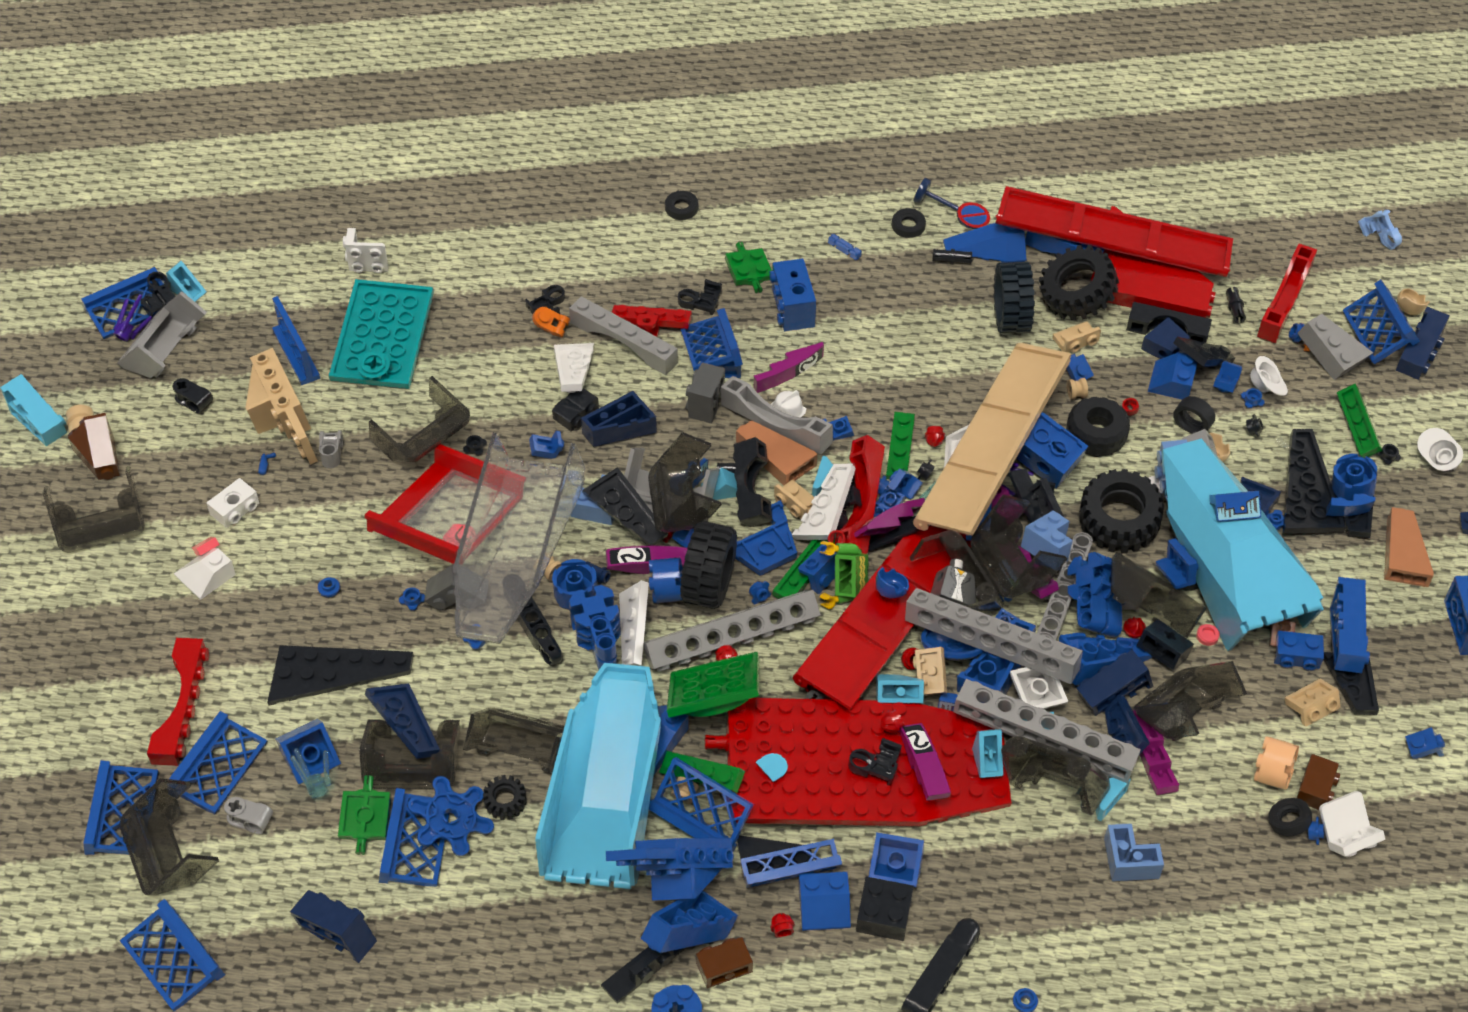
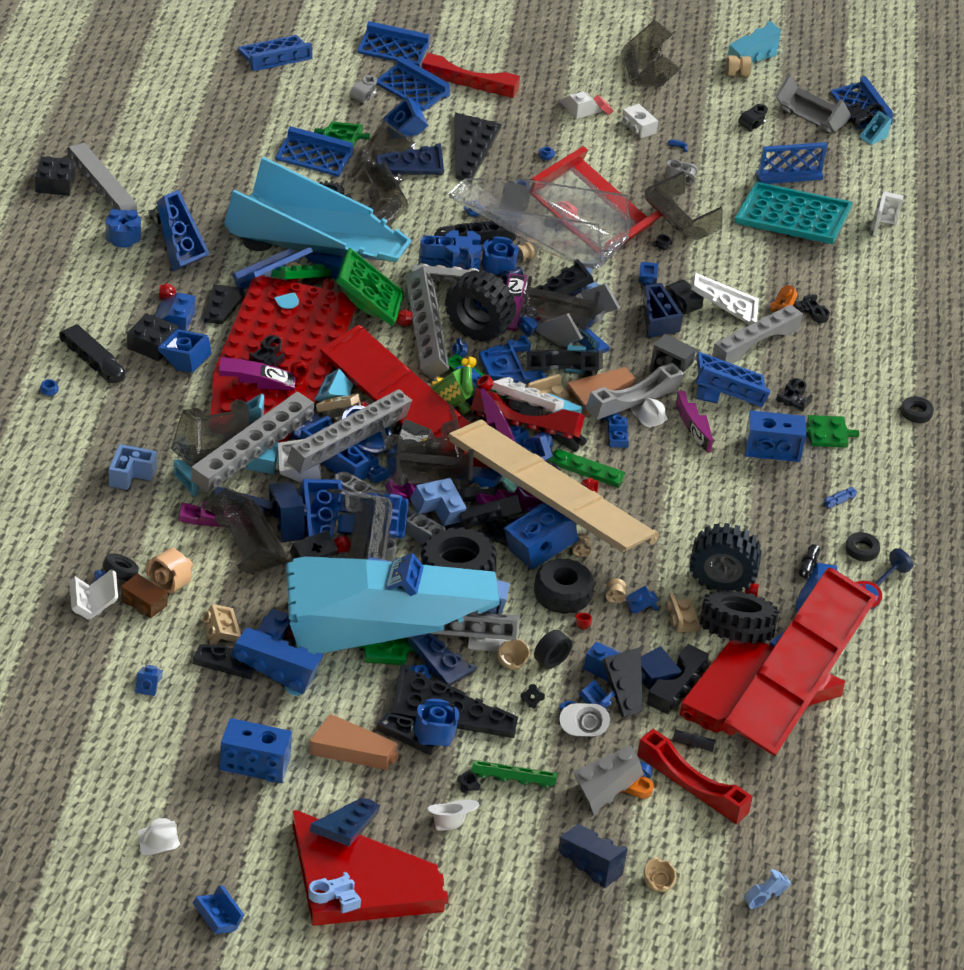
camera: 100 degrees right, 10 degrees down
(96, 446) = (710, 69): slope -> none
(123, 330) = (833, 96): dark purple plant -> none
(153, 844) = (356, 52): clear smoke windscreen -> none
(274, 403) = (723, 146): tan wedge -> none
(315, 783) = (377, 118): clear light blue plant -> none
(334, 922) = (261, 107): dark blue wedge -> none
(366, 362) = (750, 197): teal gear -> none
(460, 805) = (318, 157): blue plate -> none
(652, 318) = (773, 357): red plate -> none
(677, 865) = (217, 230): blue wedge -> none
(724, 962) = (151, 258): reddish brown brick -> none
(792, 871) = (202, 300): fence -> none
(891, 584) = (426, 395): blue hair -> none
(1357, 505) = (408, 705): blue slope -> none
(1396, 317) = (629, 828): blue fence -> none

